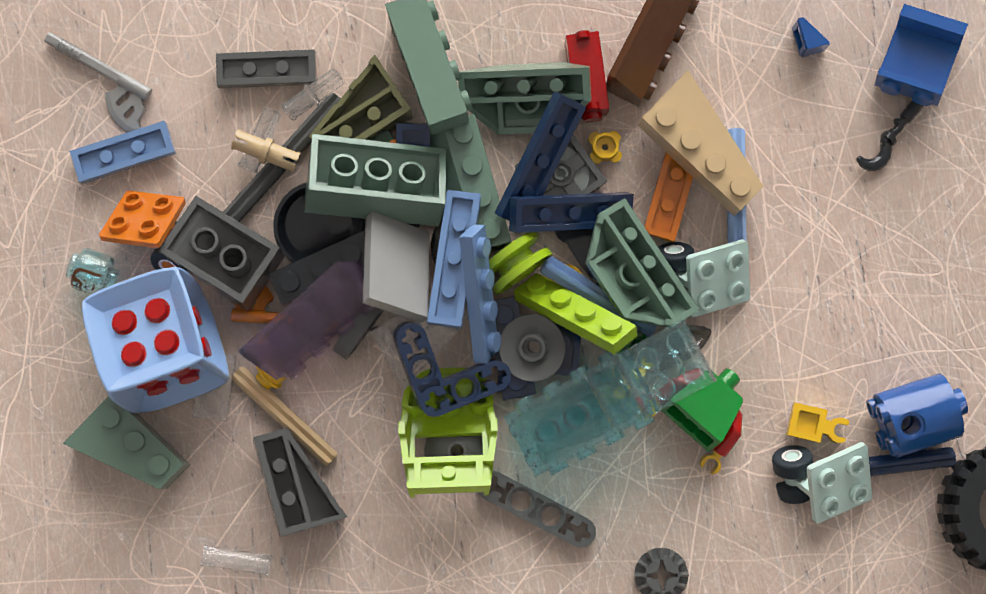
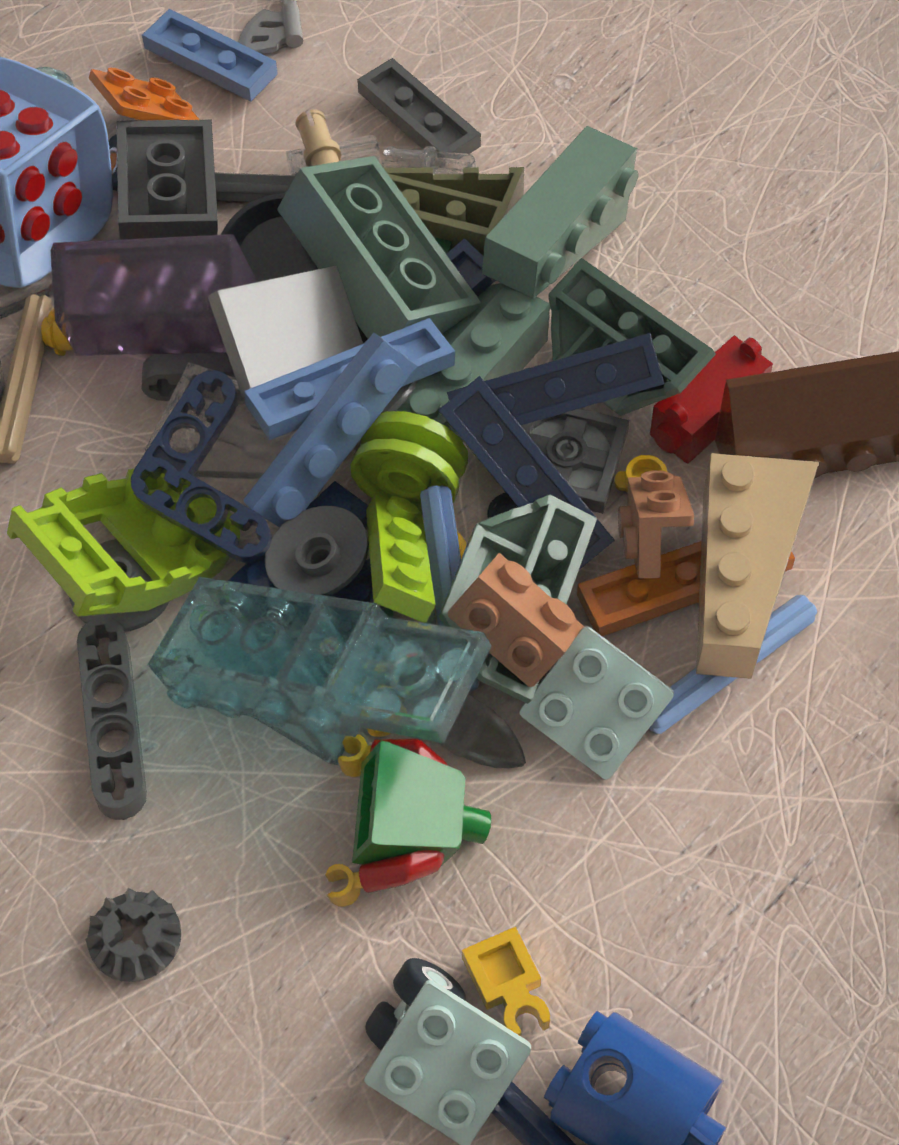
camera: 55 degrees right, 25 degrees down
(645, 168) = (653, 502): none -> nougat bracket
(662, 287) = (518, 618): none -> nougat bracket

